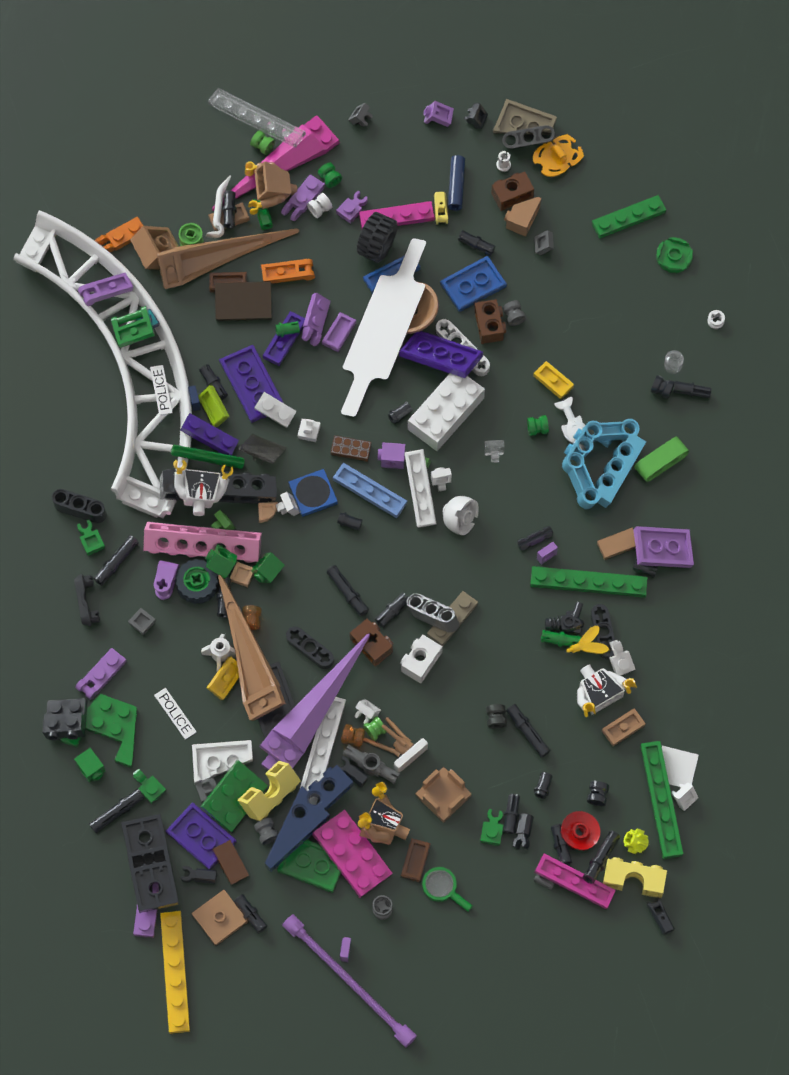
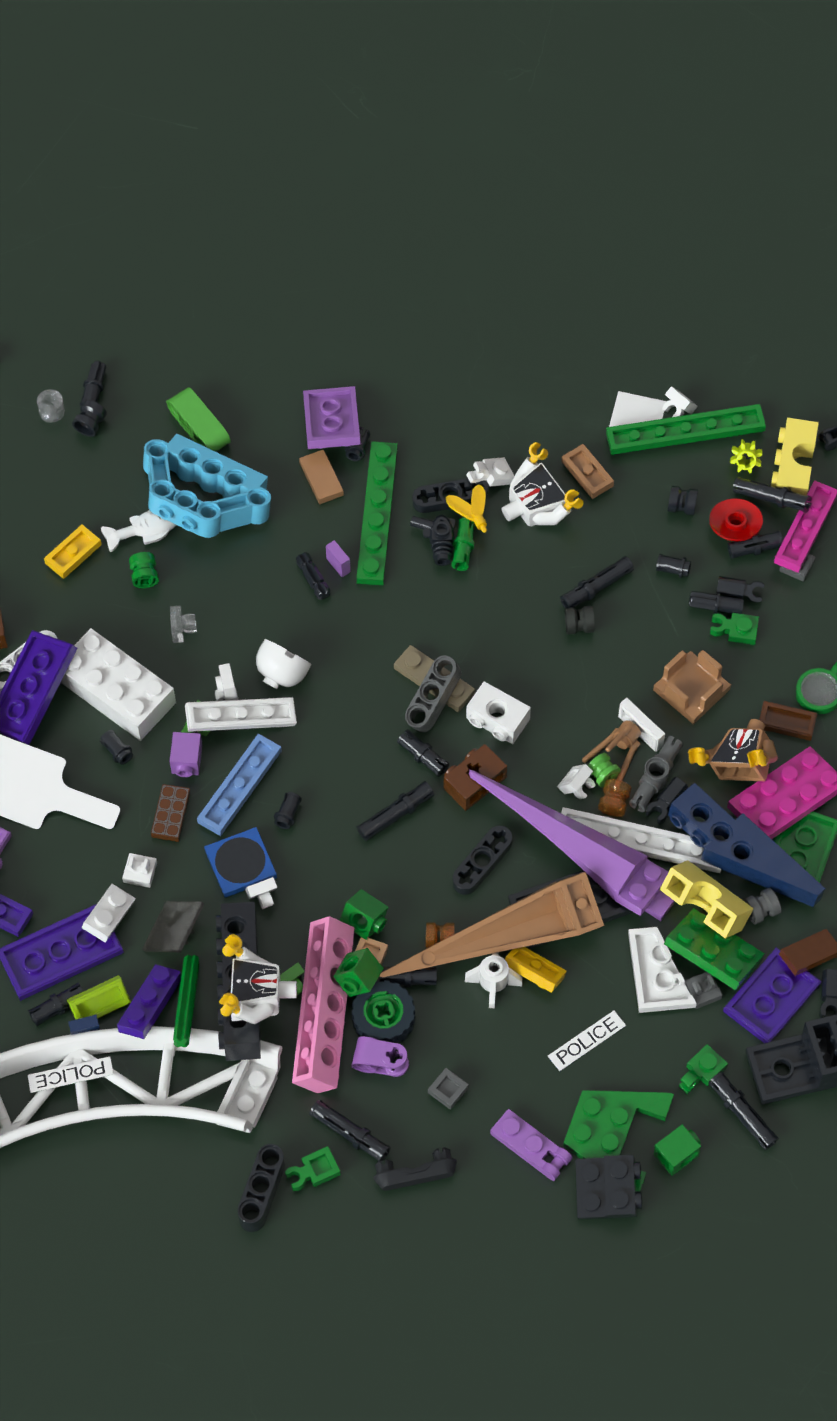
camera: 90 degrees left, 5 degrees down
(266, 511) = (268, 924): light nougat tile -> none

